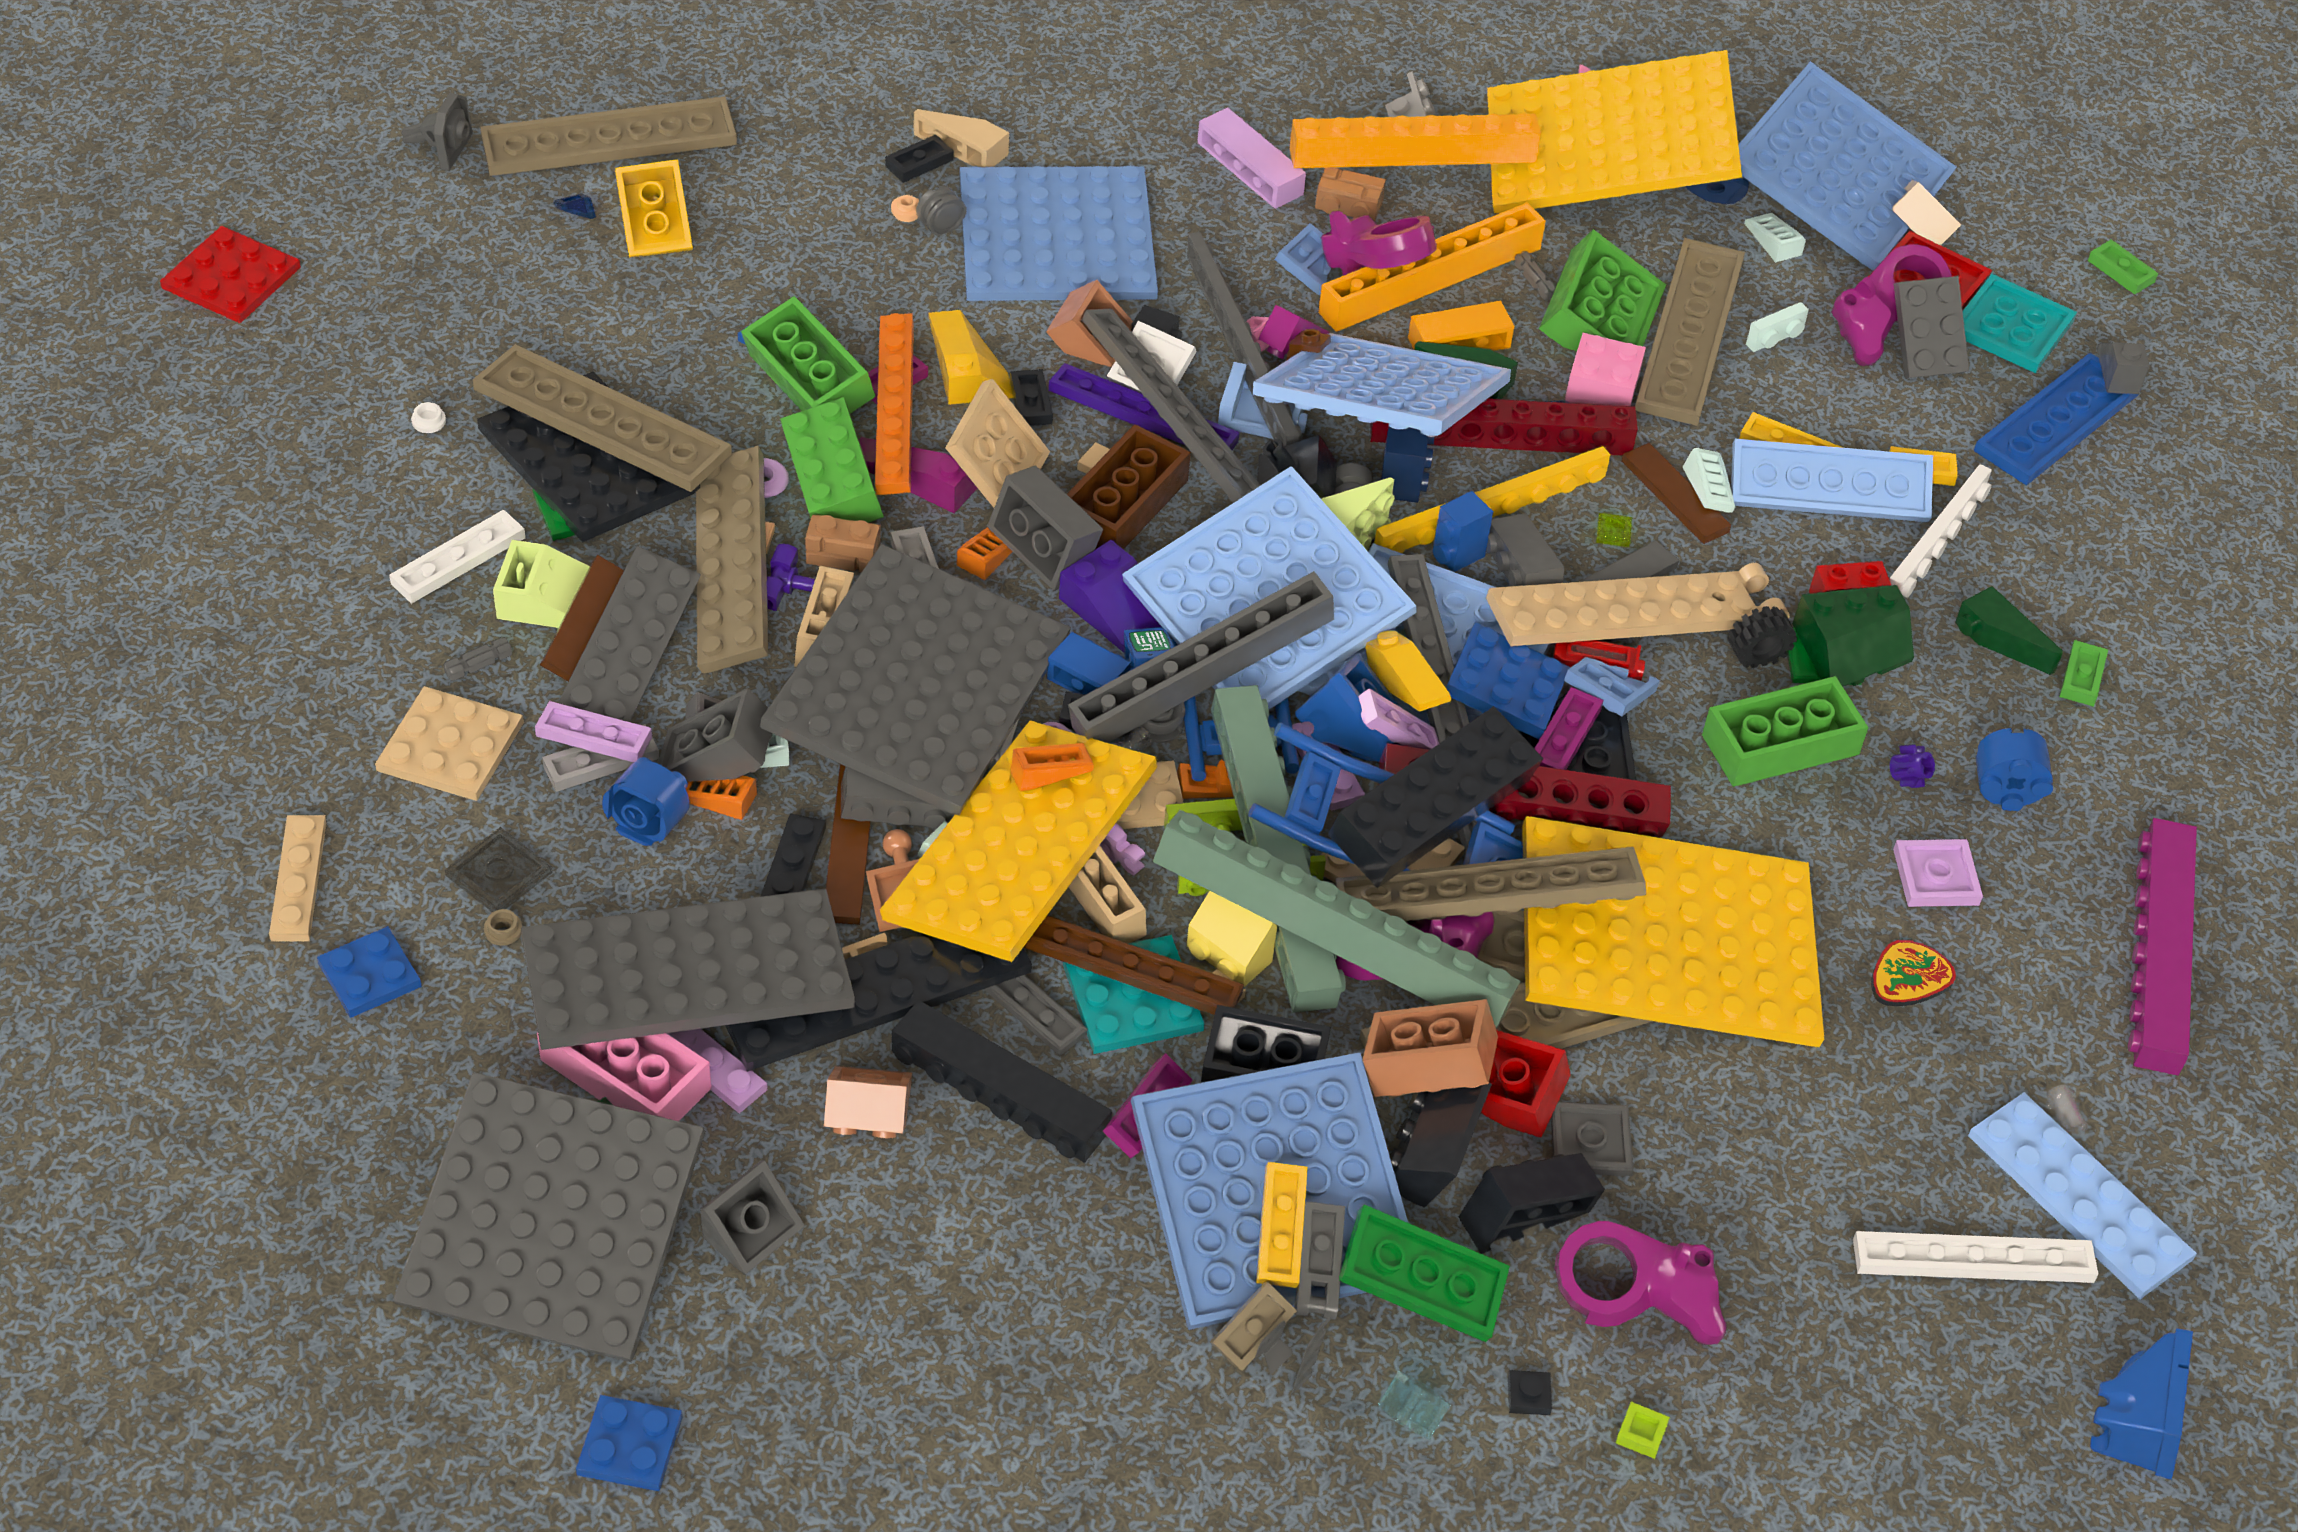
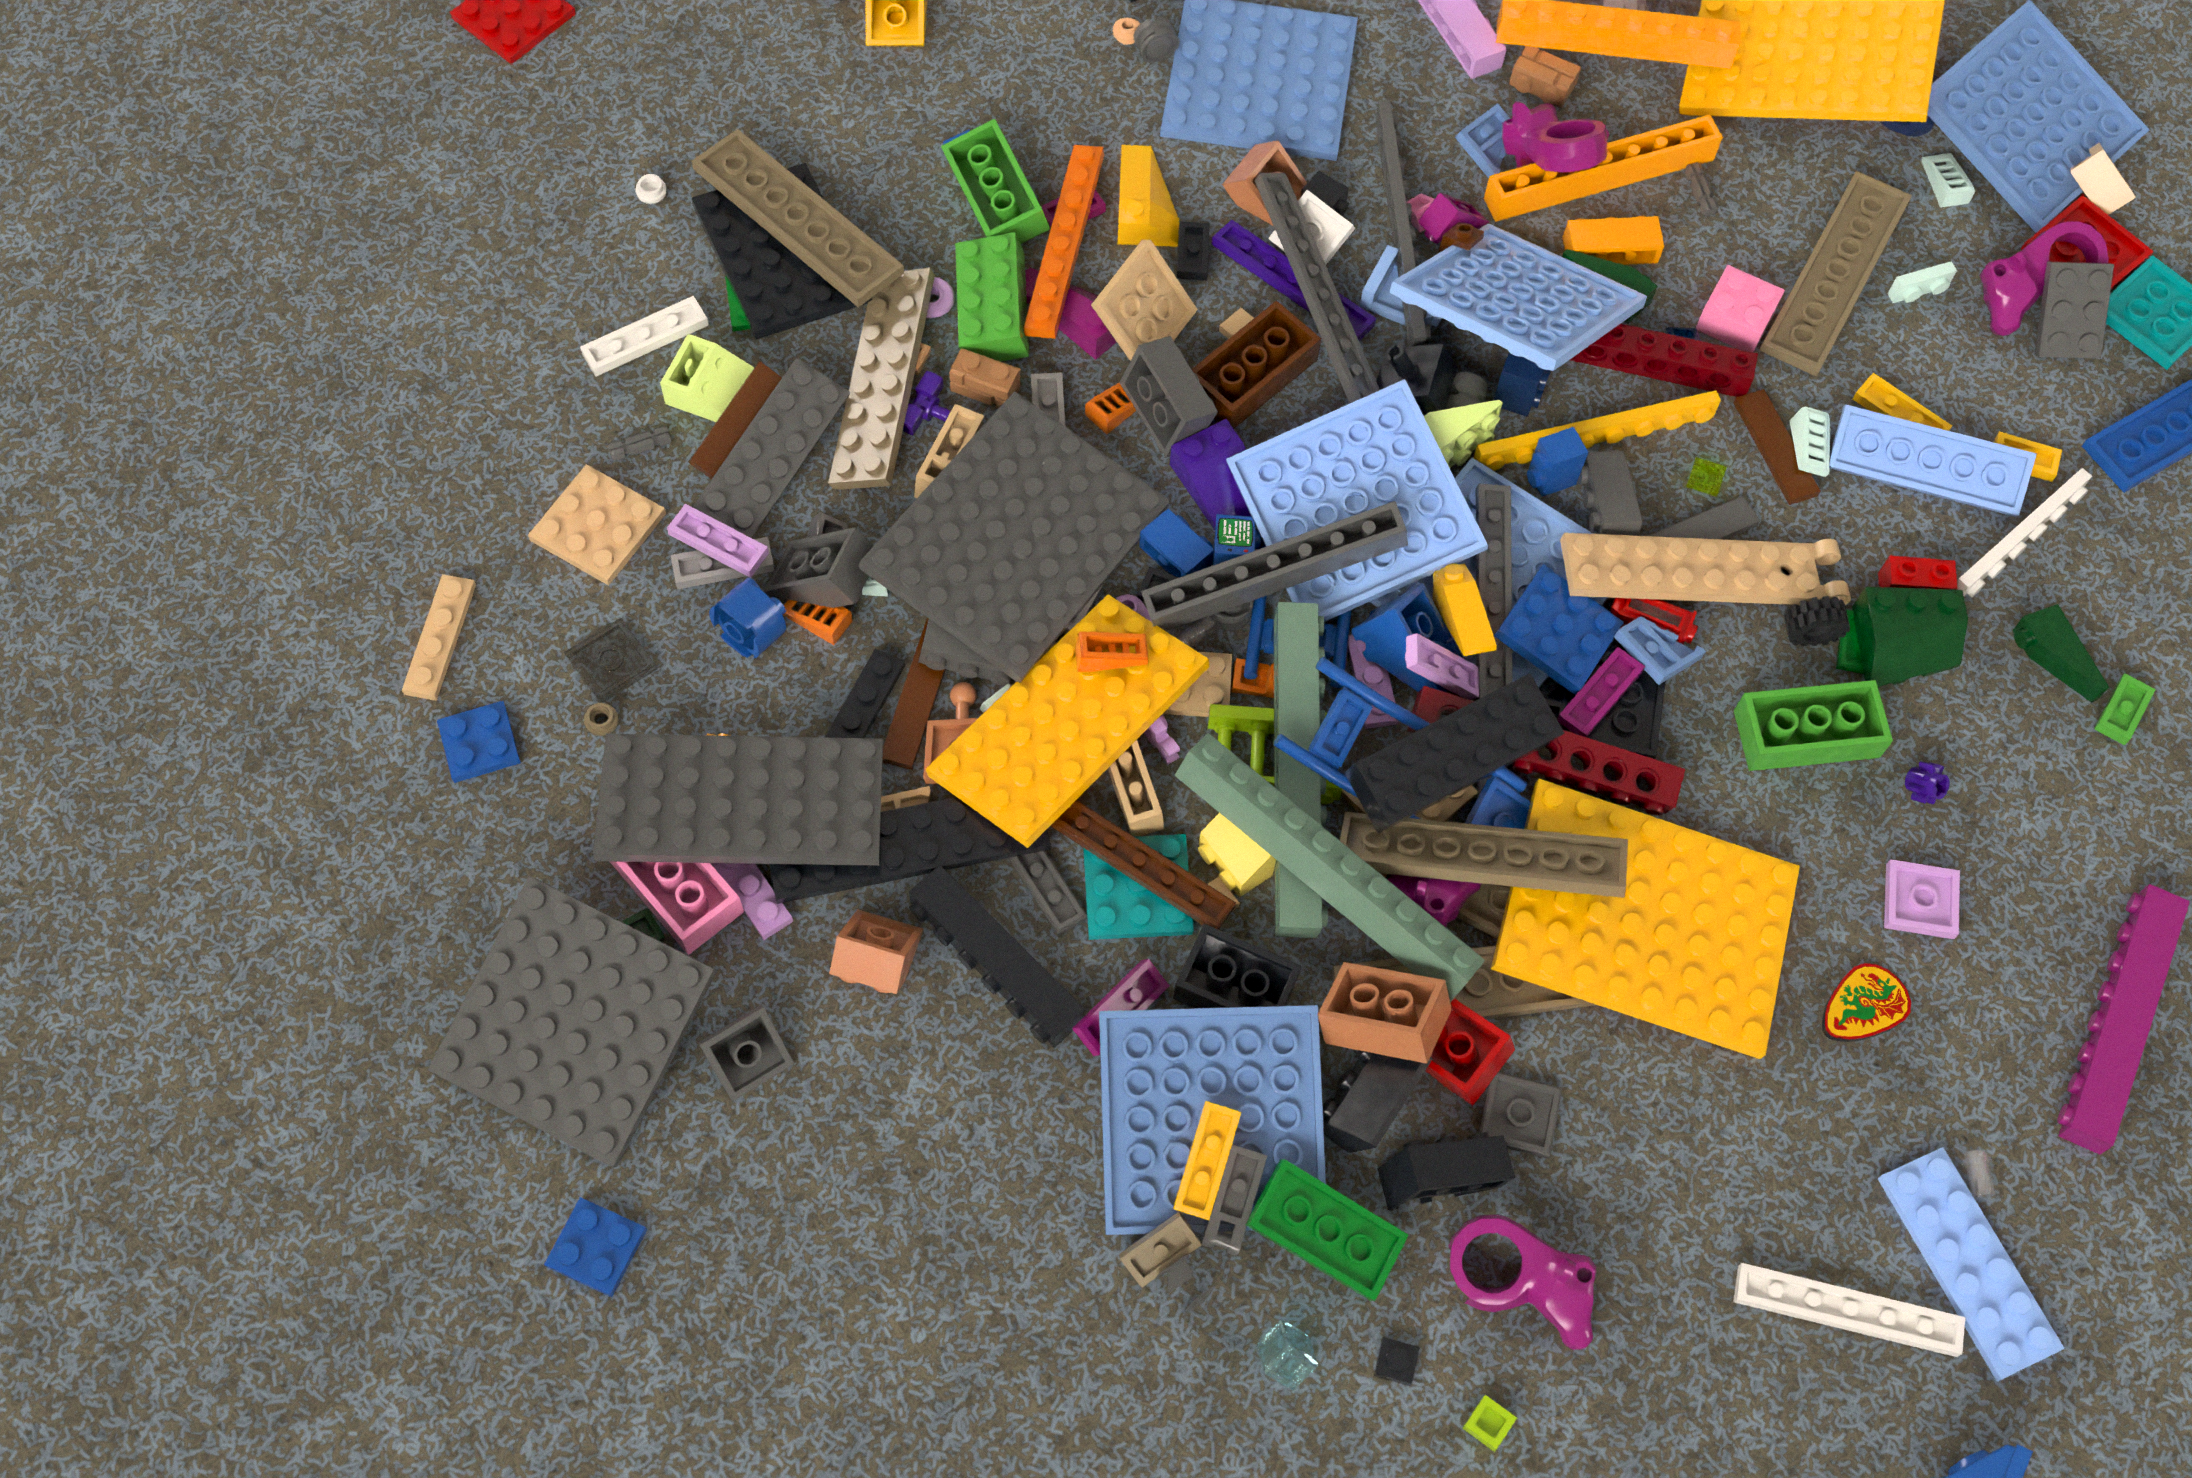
camera: 15 degrees right, 15 degrees up
(1602, 296) = (1759, 225): bright green slope -> none
(2014, 768) = (2025, 806): blue brick -> none

